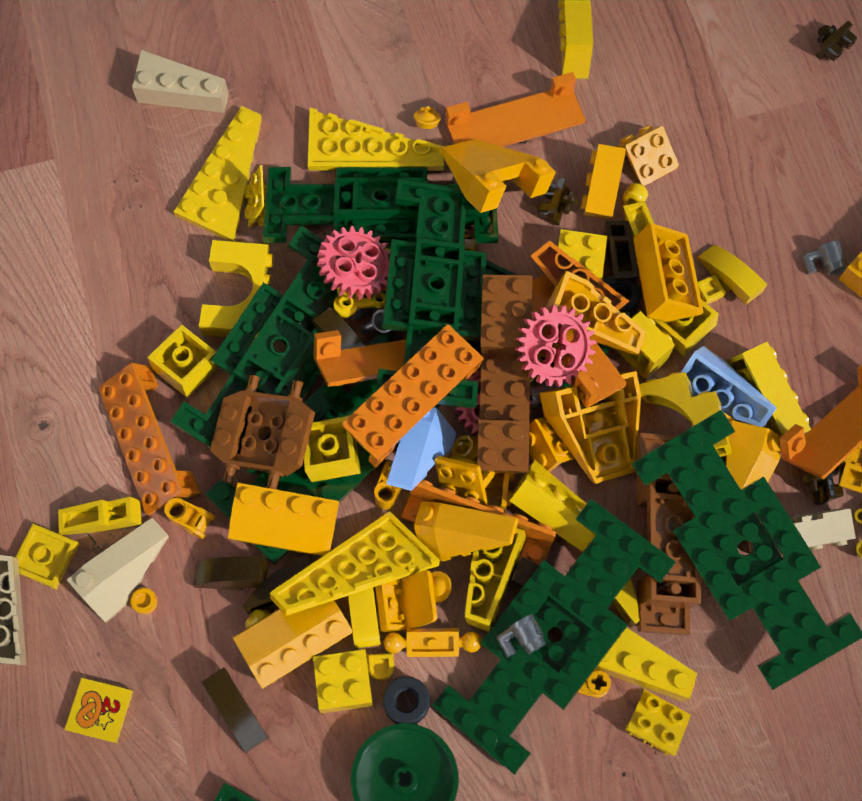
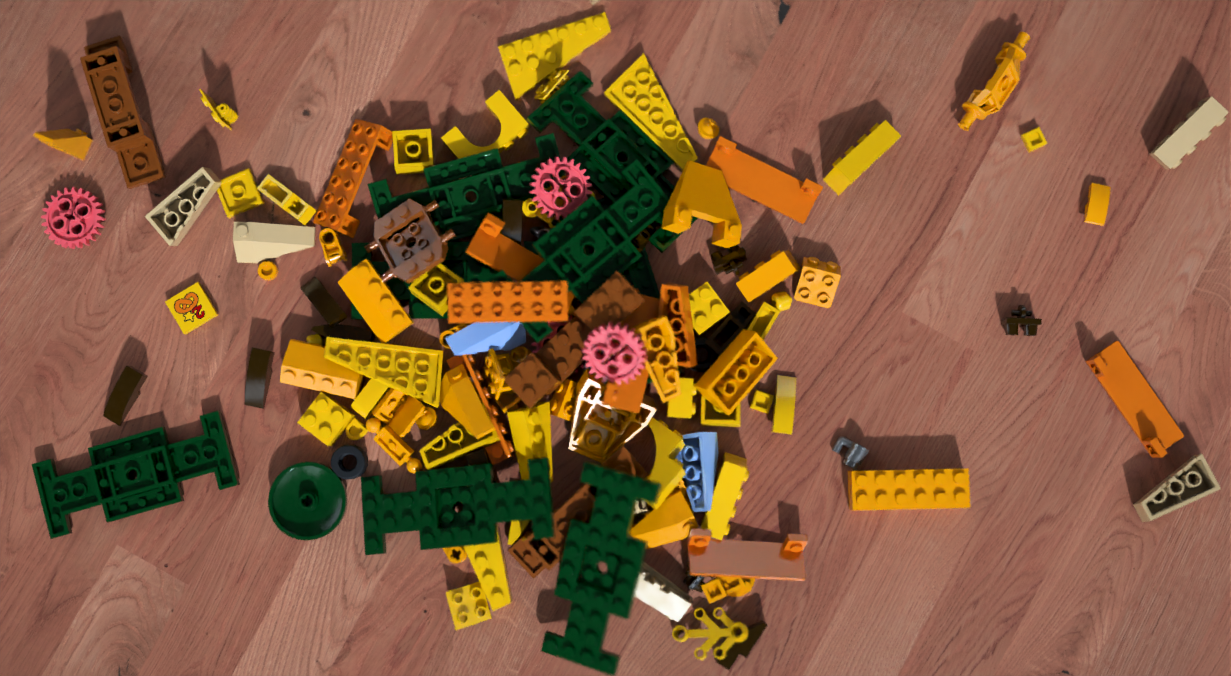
camera: 50 degrees right, 15 degrees up
(527, 634) = (438, 494): flat silver piece -> none

